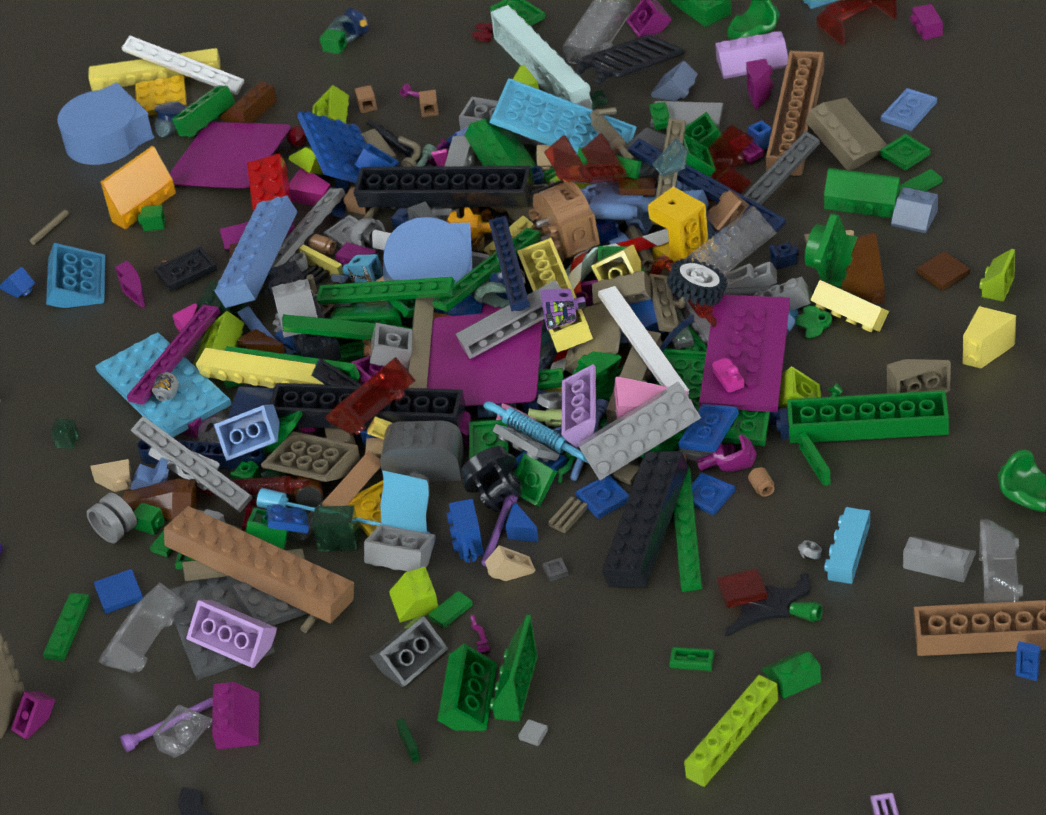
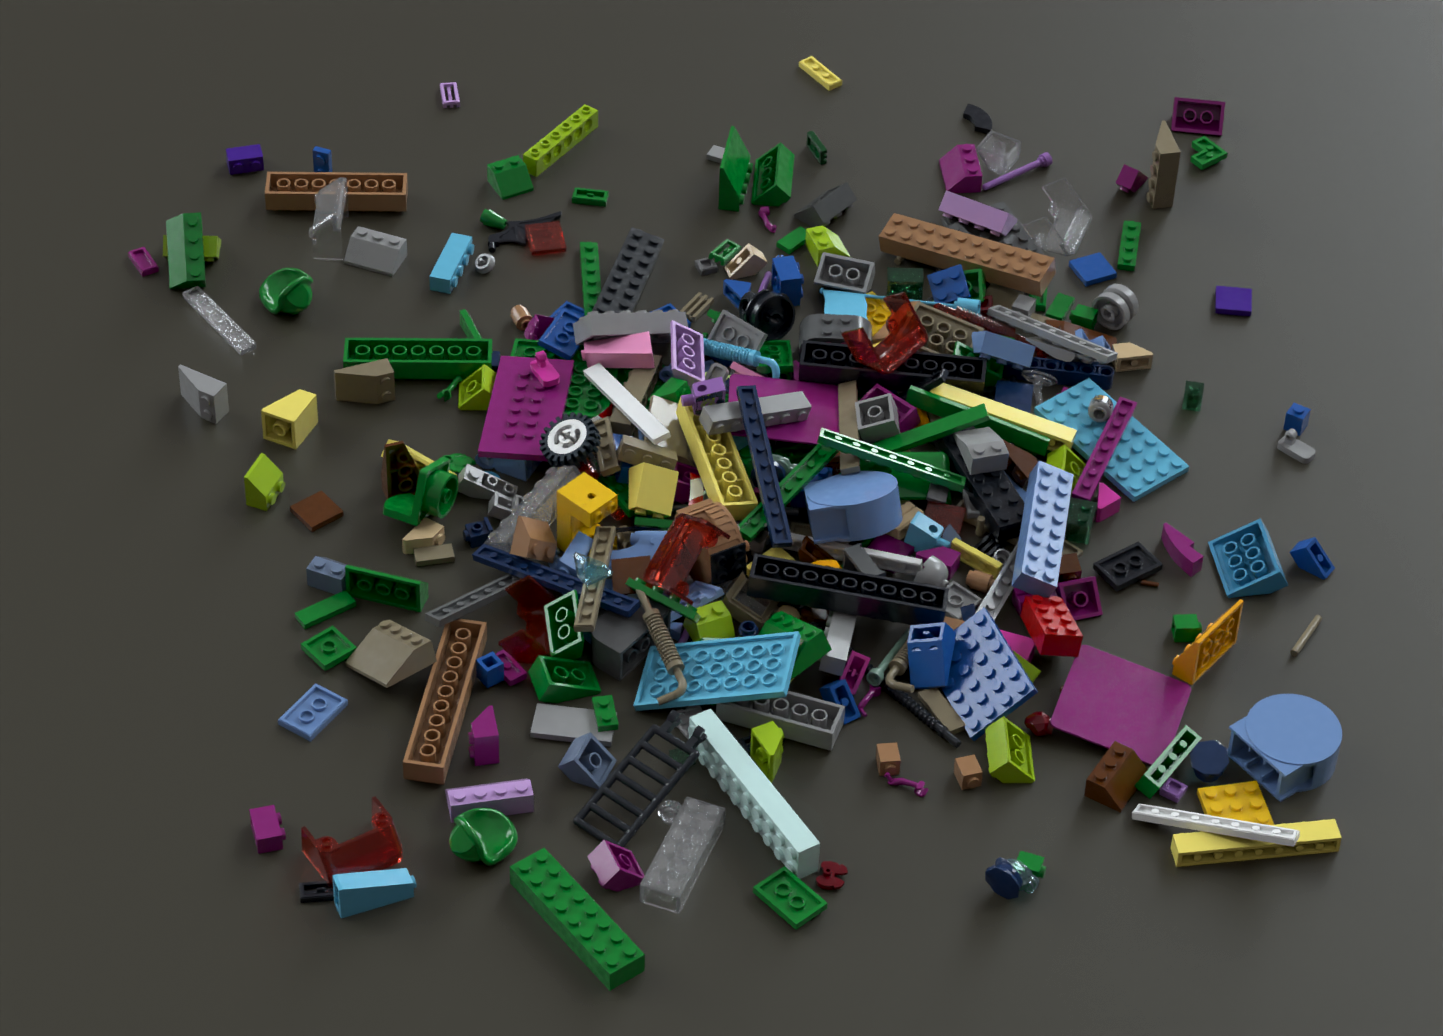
camera: 170 degrees right, 0 degrees up
(536, 582) = (727, 254): none -> green tile

